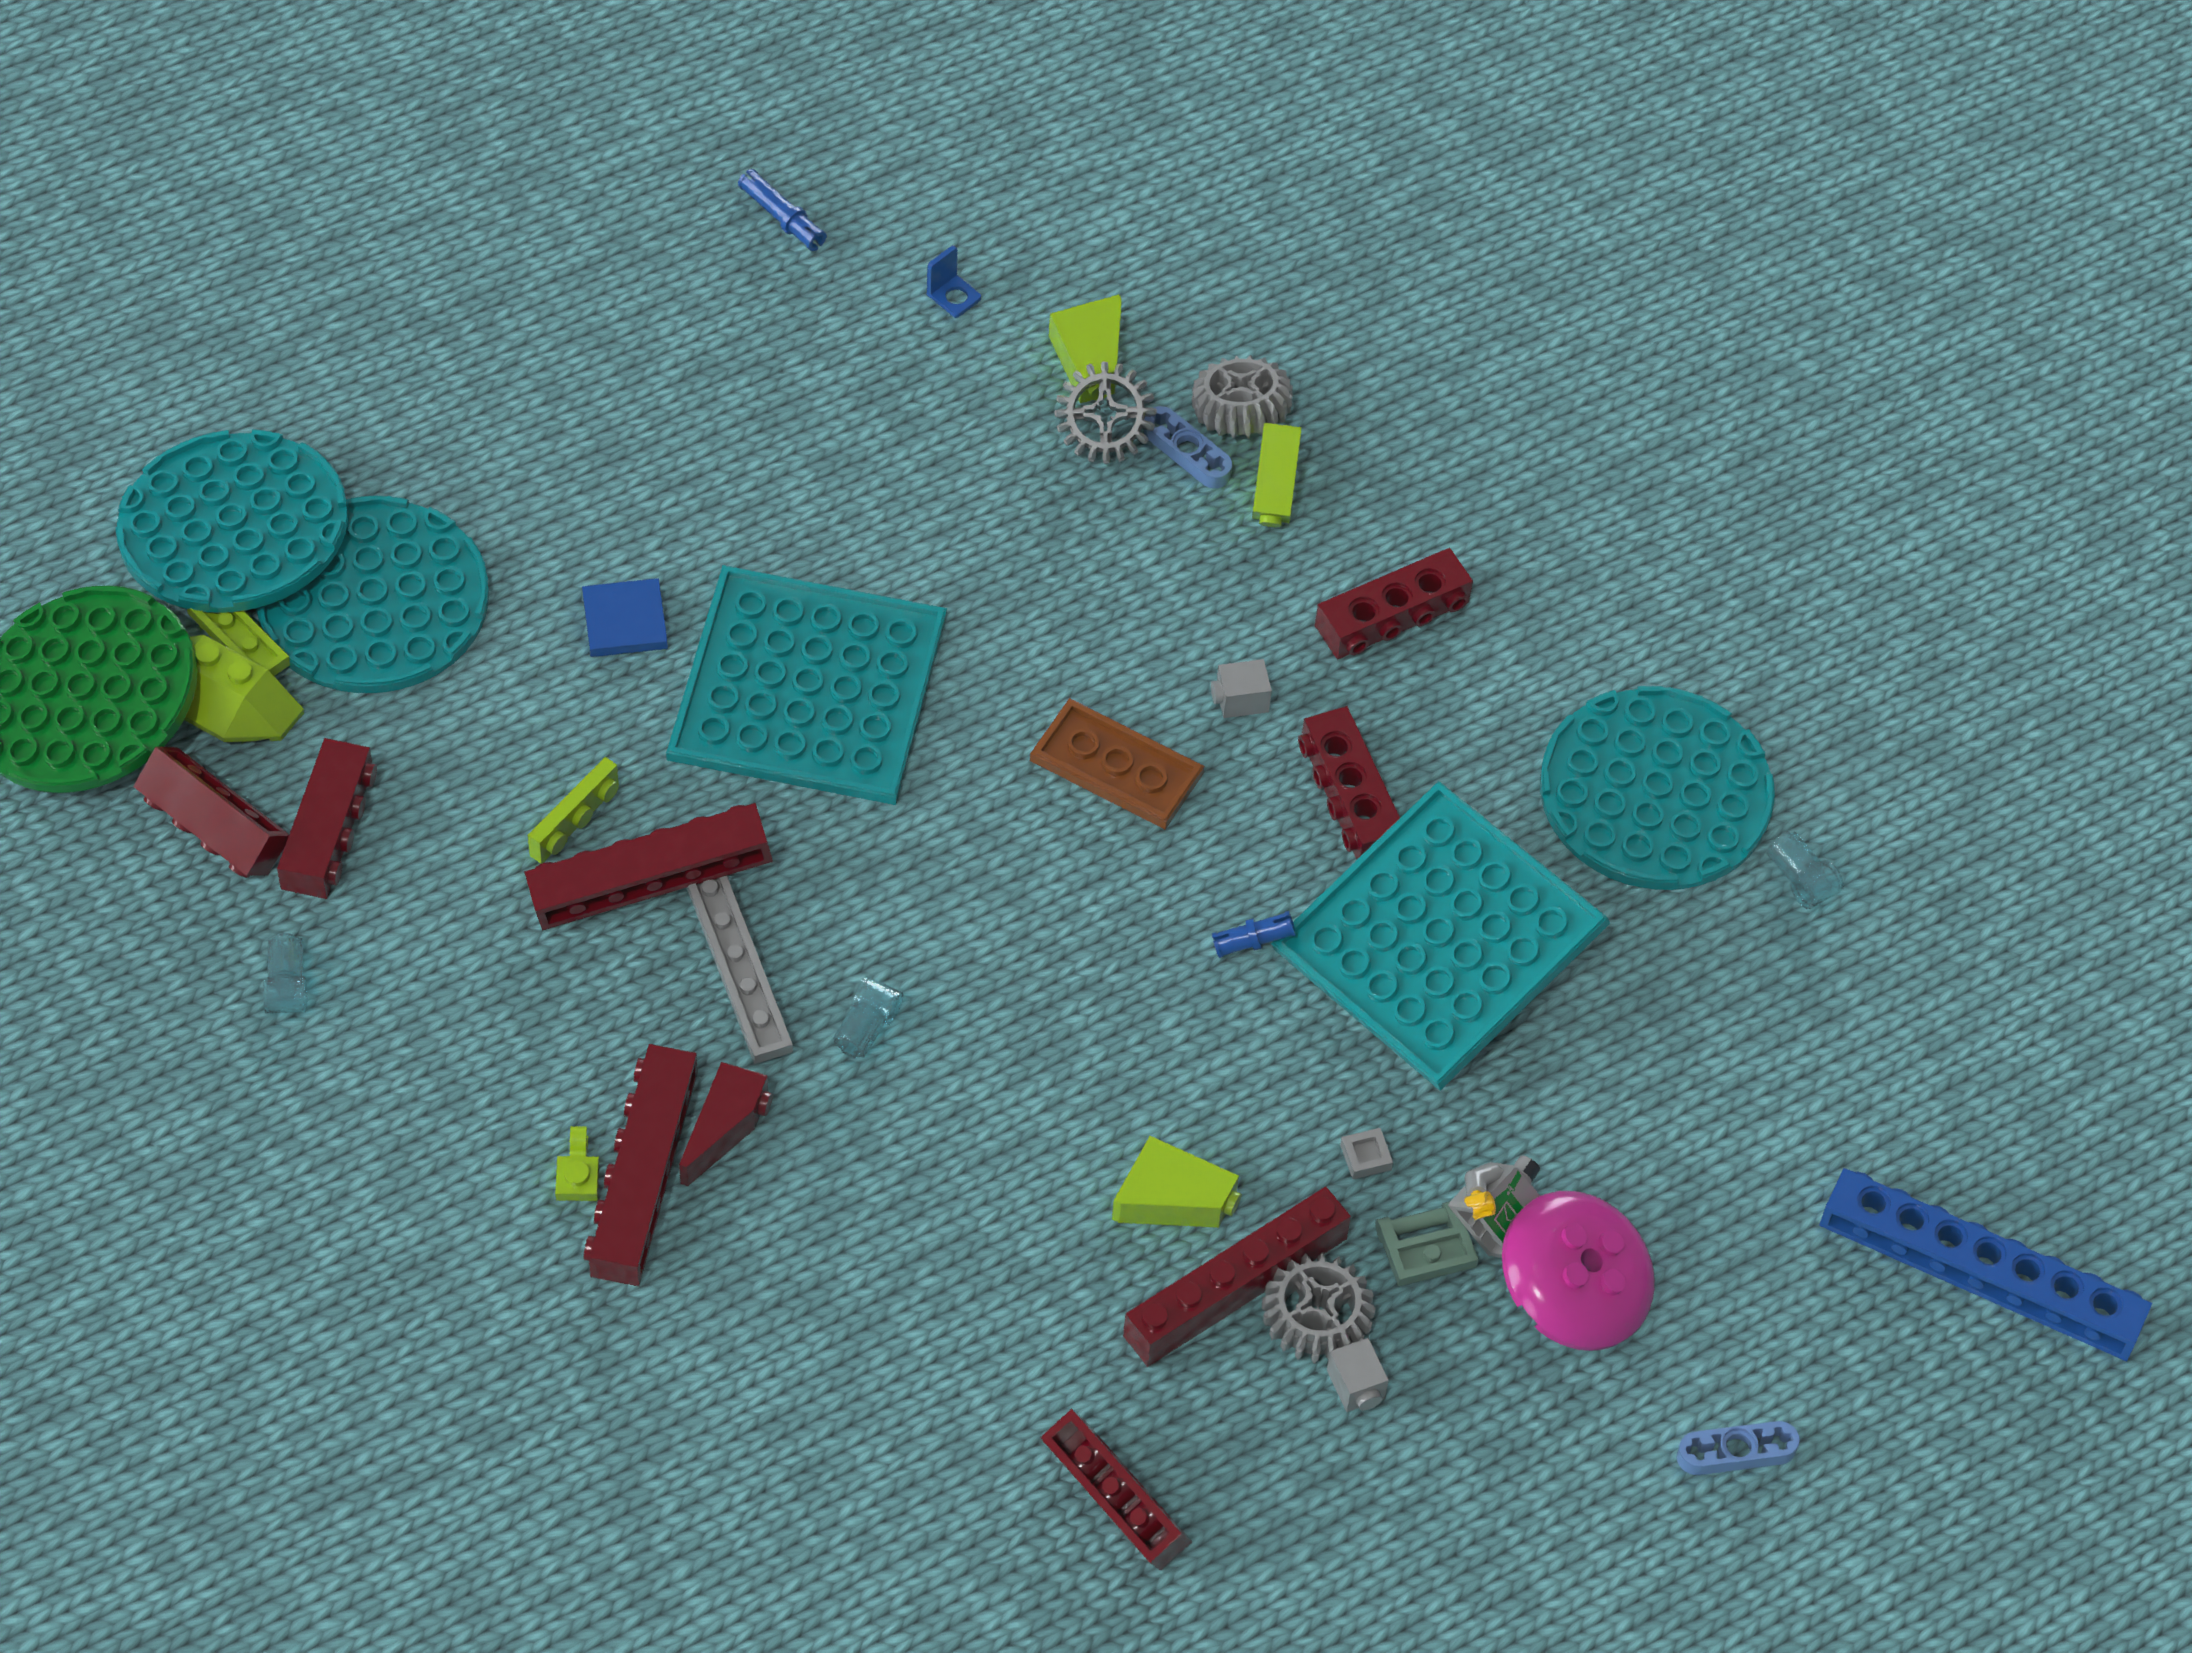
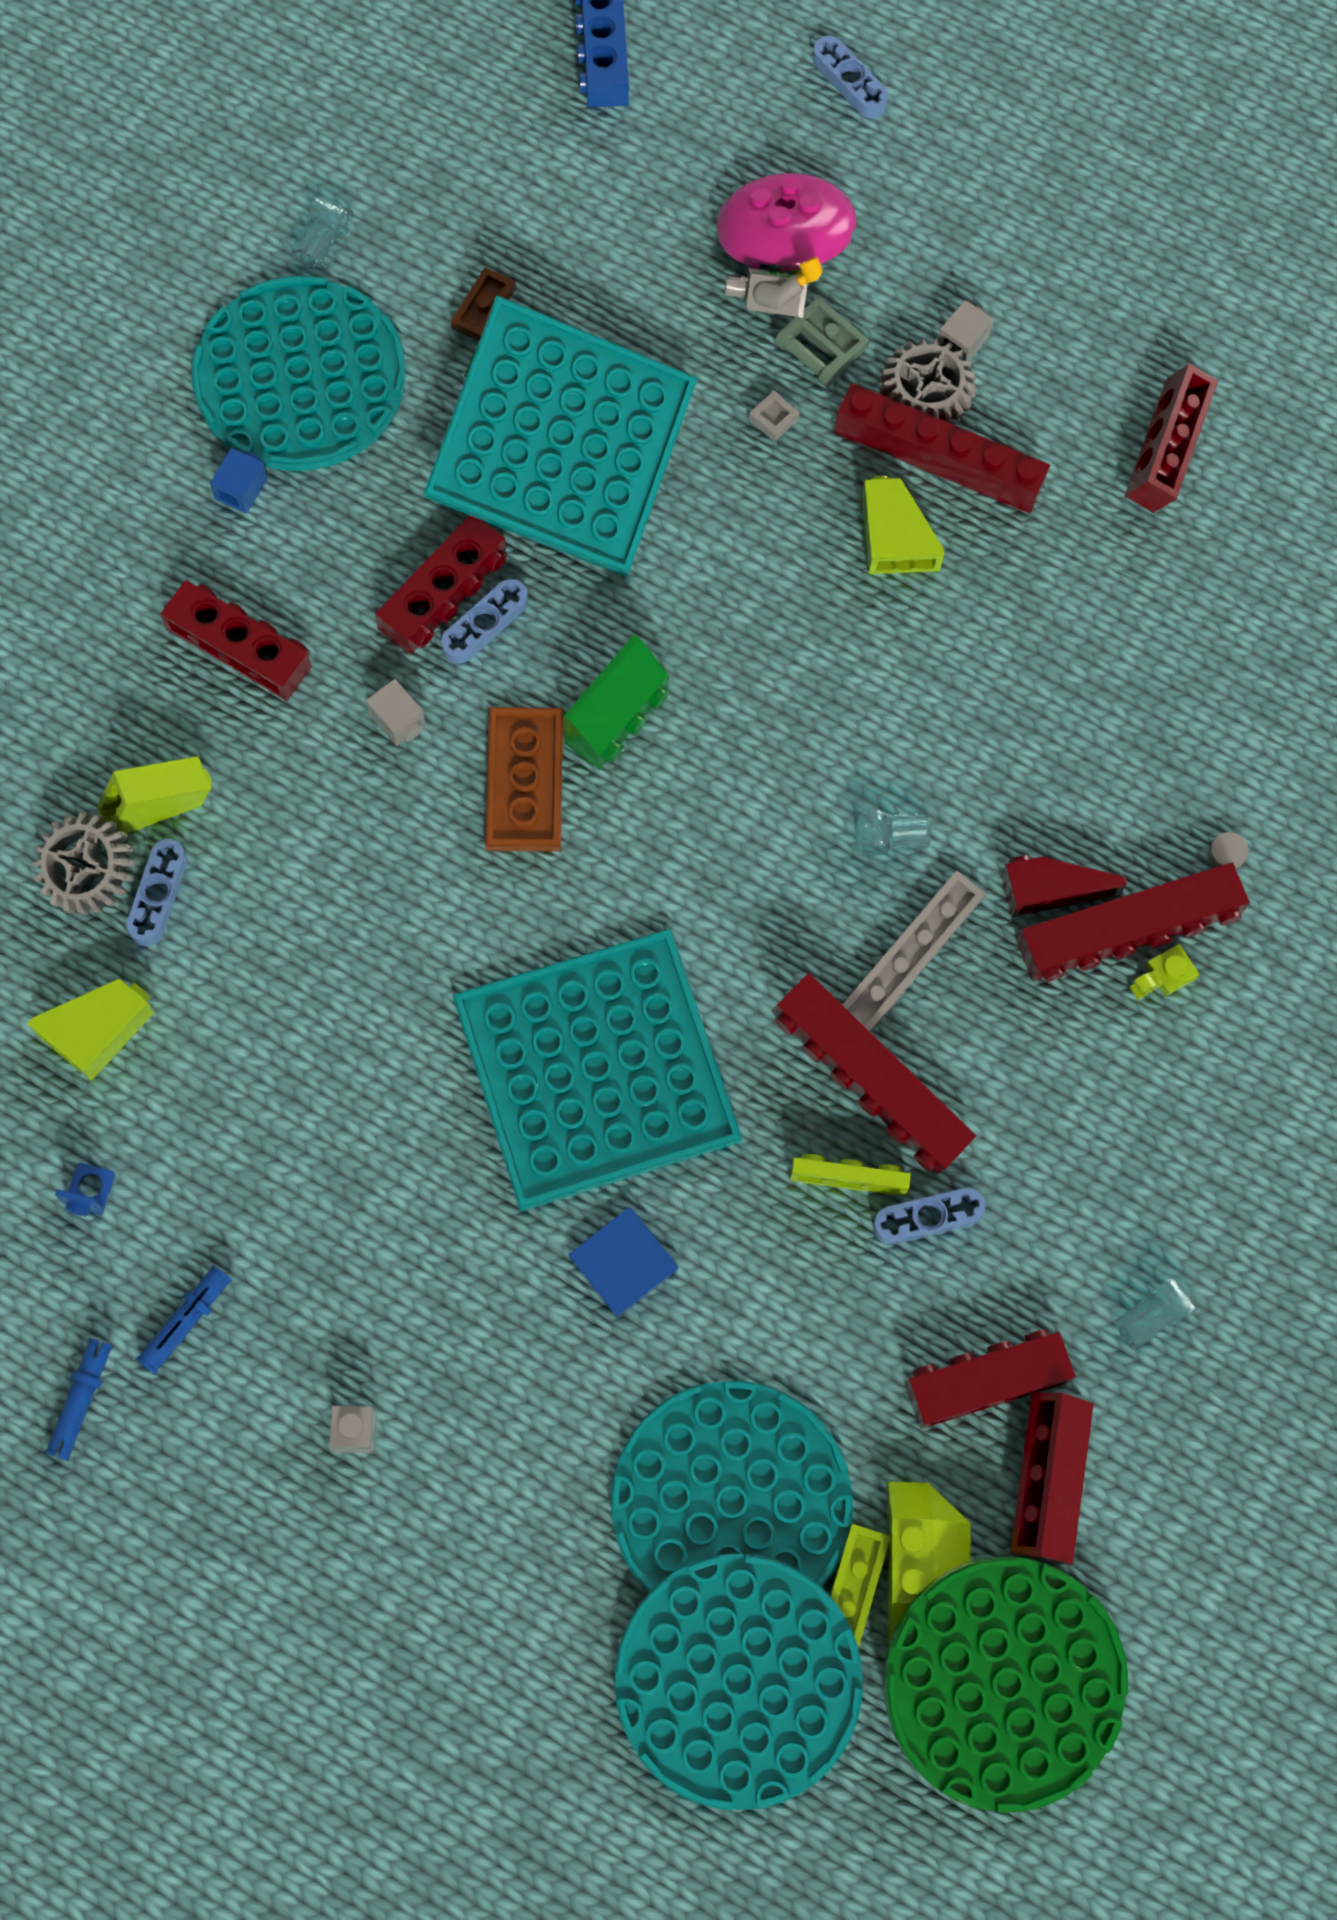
camera: 120 degrees left, 15 degrees up
(500, 873) = (954, 1199): none -> medium blue beam
(622, 364) = (353, 1429): none -> light grey brick
(656, 1295) = (1228, 848): none -> light grey tile
(802, 313) = (212, 1284): none -> blue pin
(1123, 412) = (170, 975): light grey gear -> none
(1136, 852) = (616, 704): none -> green slope
(1253, 934) = (633, 584): blue pin -> none
(1292, 822) = (485, 606): none -> medium blue beam
(1560, 678) = (239, 480): none -> blue brick
(1641, 967) = (476, 307): none -> reddish brown plate

